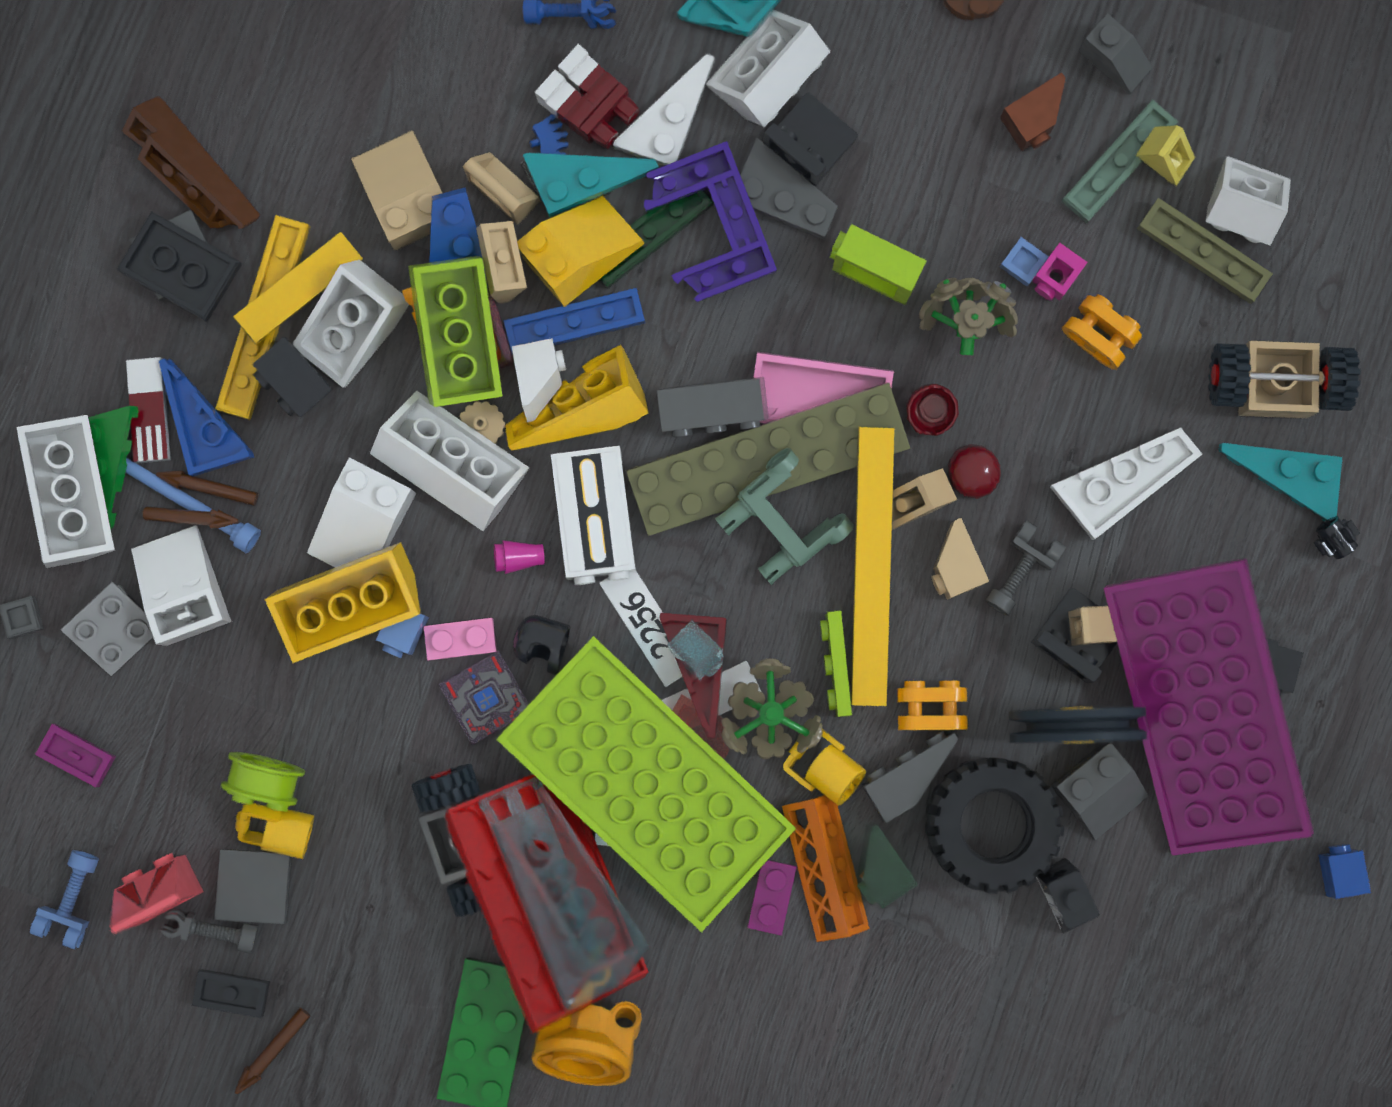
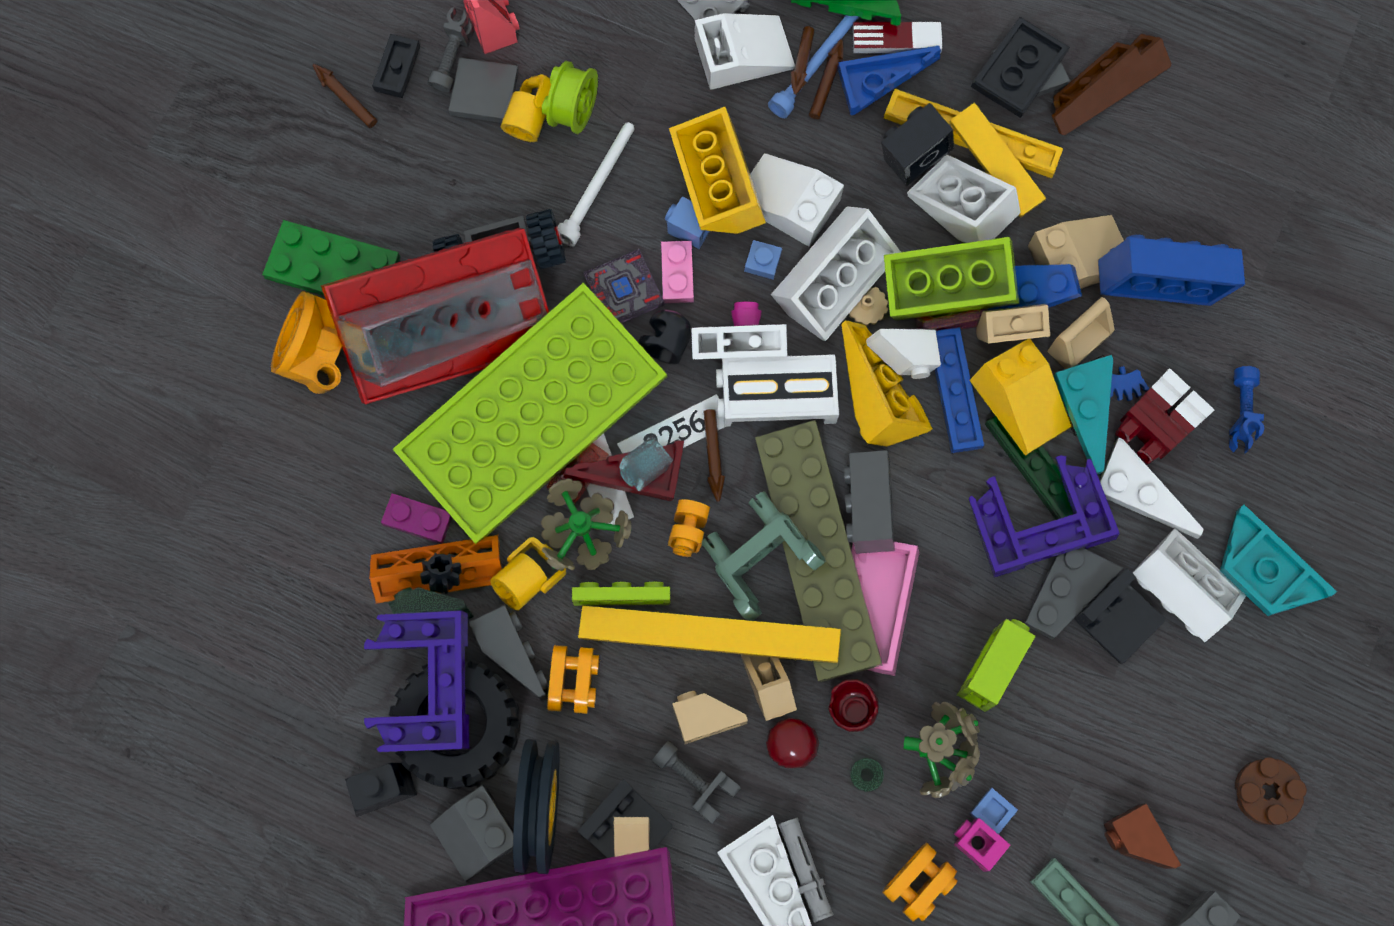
camera: 90 degrees right, 10 degrees down
(420, 765) = (570, 228): none -> white piece
(424, 92) = (1171, 271): none -> blue brick
(437, 543) = (763, 259): none -> medium blue plate
(546, 561) = (739, 341): none -> white slope
(699, 574) = (716, 478): none -> reddish brown piece
(773, 599) = (685, 536): none -> light orange brick
(846, 864) = (441, 573): none -> black gear
(1002, 828) = (446, 723): none -> dark purple wedge
(1008, 388) = (874, 767): none -> clear green plate
(1114, 442) = (806, 871): none -> light grey pin

